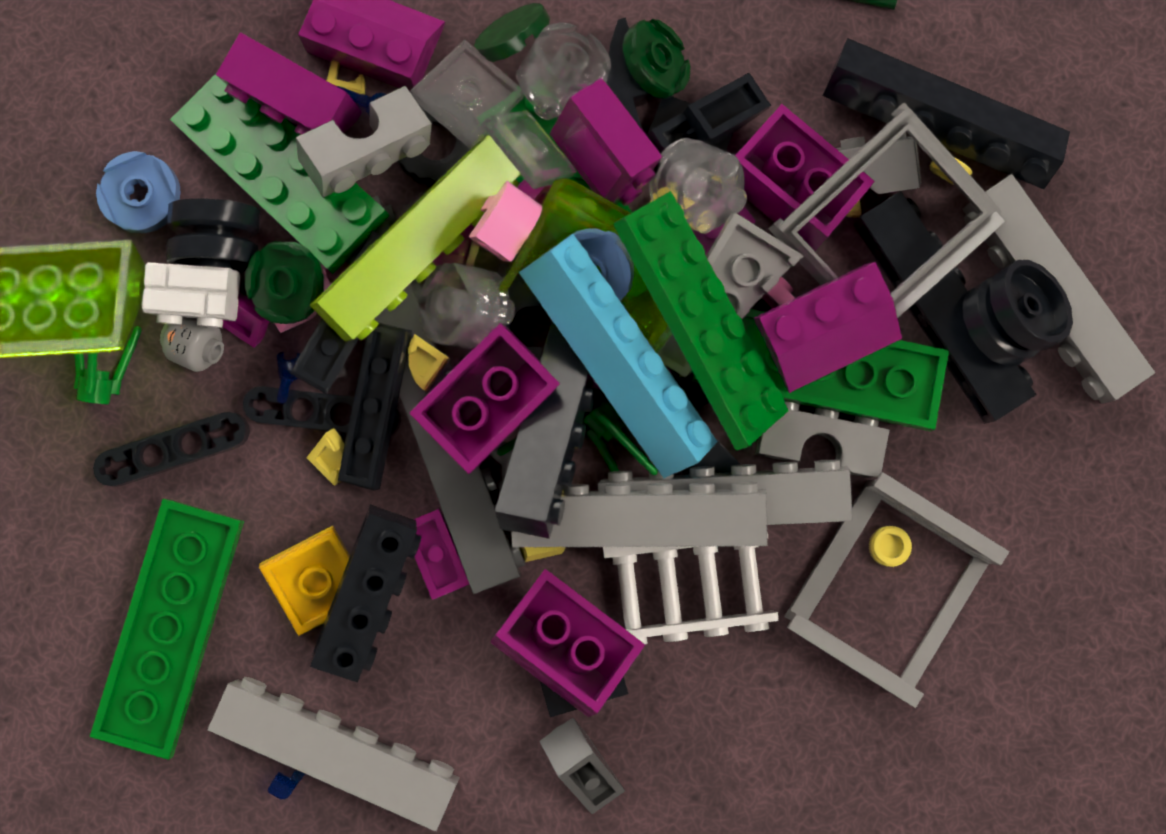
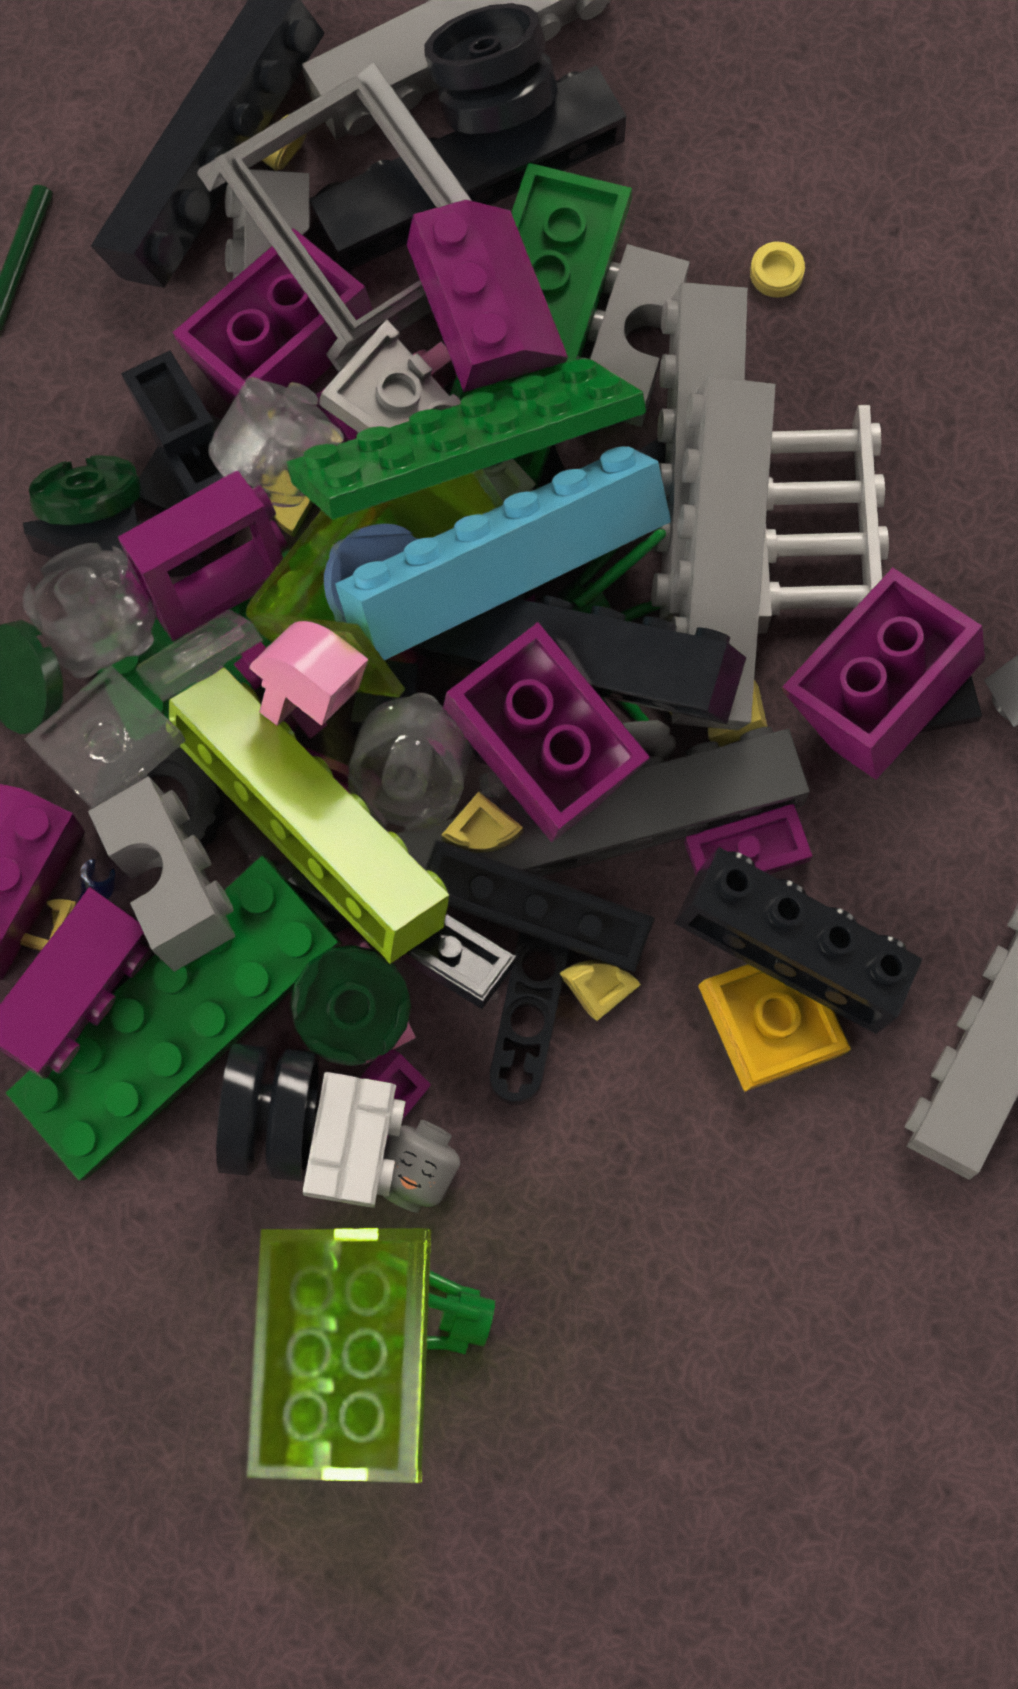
camera: 85 degrees left, 10 degrees down
(118, 184) = (153, 1219): medium blue plate -> none
(167, 629) = (829, 1235): green plate -> none
(171, 445) = (564, 1214): black beam -> none
(286, 378) = (472, 1035): clear blue hand -> none
(931, 517) = (752, 202): light grey piece -> none

